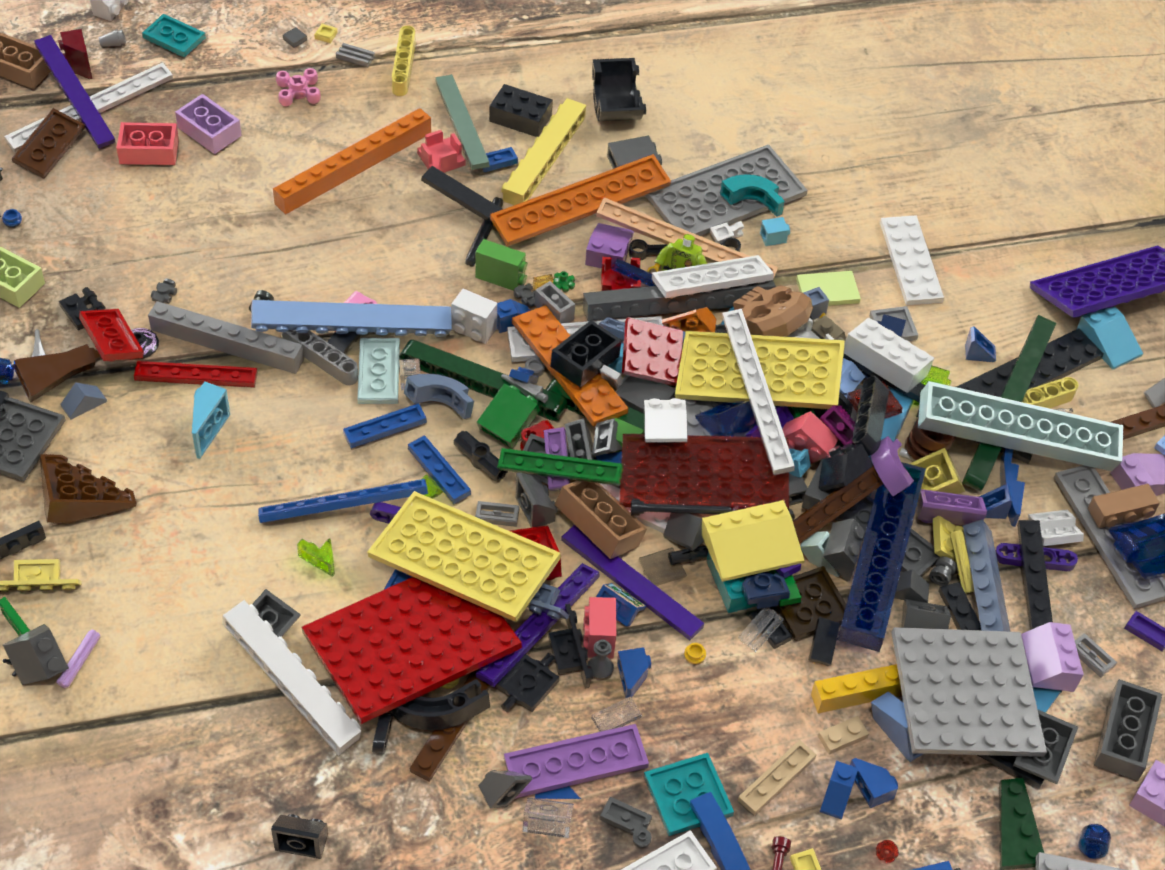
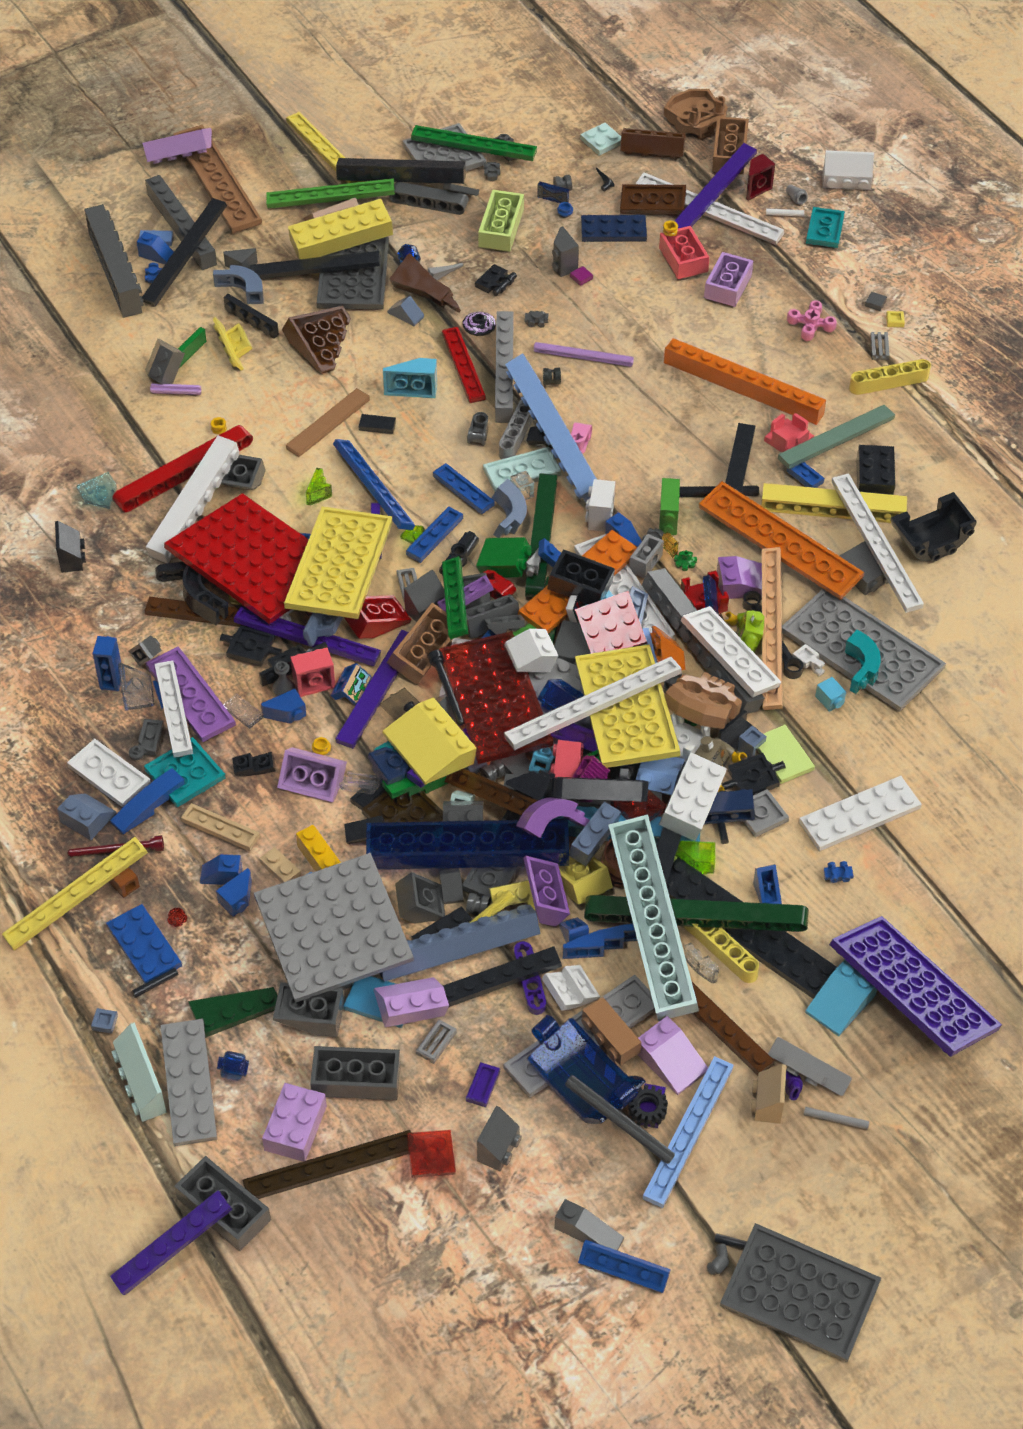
camera: 75 degrees right, 0 degrees up
(65, 189) = (613, 228): none -> dark blue plate
(88, 233) = (565, 253): none -> dark grey slope
(111, 335) = (468, 299): red plate -> none
(119, 136) = (670, 232): none -> yellow bush
(121, 236) = (581, 275): none -> magenta tile
(131, 56) = (784, 212): none -> white piece
(164, 622) = (218, 425): none -> yellow bush
(211, 781) = (98, 490): none -> clear light blue plate
(218, 521) = (327, 422): none -> medium nougat tile
(220, 684) = (173, 473): none -> red beam
(239, 271) = (583, 354): none -> lavender axle
(245, 475) = (376, 423): none -> black tile
(307, 386) = (478, 428): none -> dark grey piece
(518, 825) = (106, 661): none -> blue brick
(603, 777) = (173, 709): none -> white plate
(619, 133) = (877, 543): none -> white plate
(697, 723) = (248, 765): none -> black slope
(733, 670) = (311, 774): none -> lavender slope
(849, 311) = (754, 774): none -> black plate
(915, 446) = (594, 834): none -> sand blue brick
(973, 296) = (835, 874): none -> blue piece

